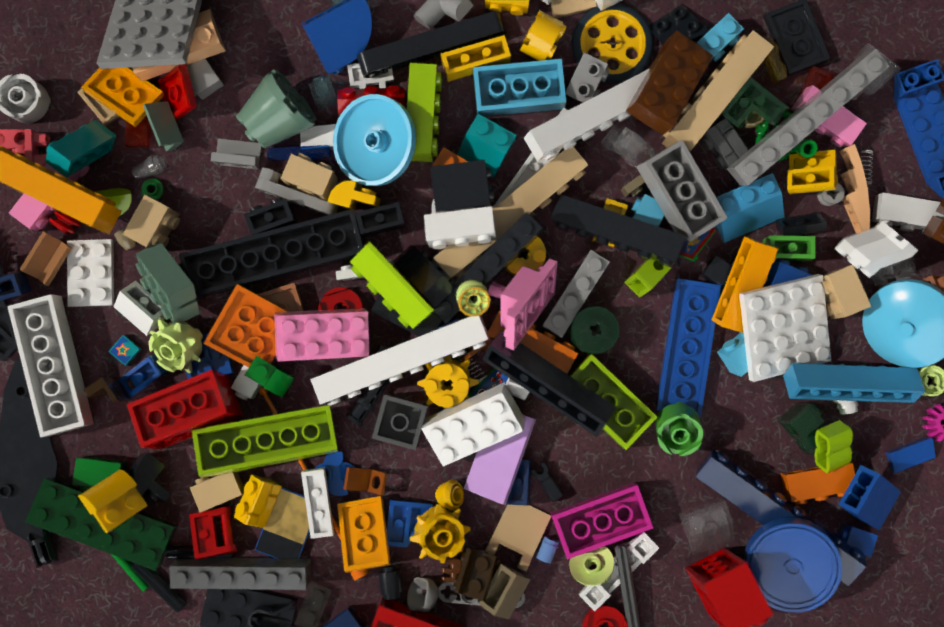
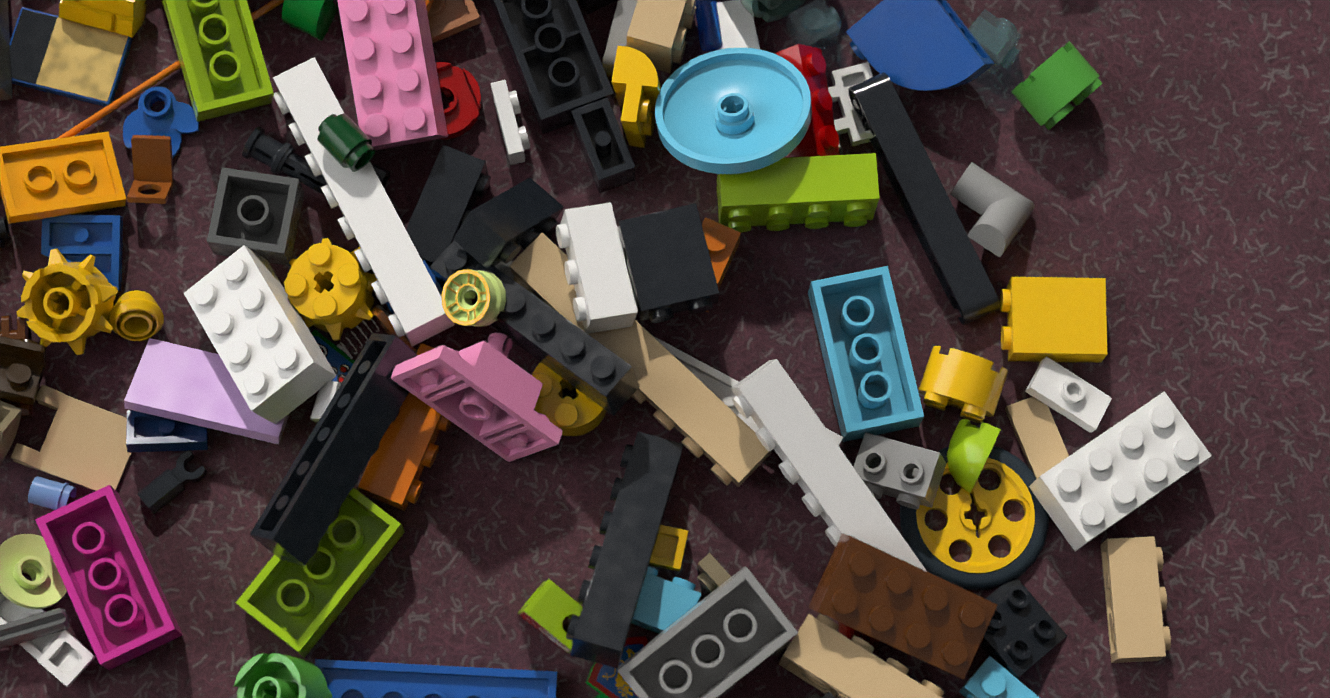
camera: 80 degrees right, 10 degrees down
(317, 503) = (106, 96): white plate -> none
(368, 364) = (345, 142): none -> dark green brick
(391, 285) = (486, 164): lime slope -> none
(460, 62) = (912, 277): yellow brick -> none
(487, 142) = (756, 311): teal slope -> none
(575, 294) = (508, 491): light grey brick -> none
(580, 38) = (970, 451): none -> lime brick
(581, 334) = (455, 548): clear green wheel -> none
(628, 144) = (786, 556): clear brick -> none

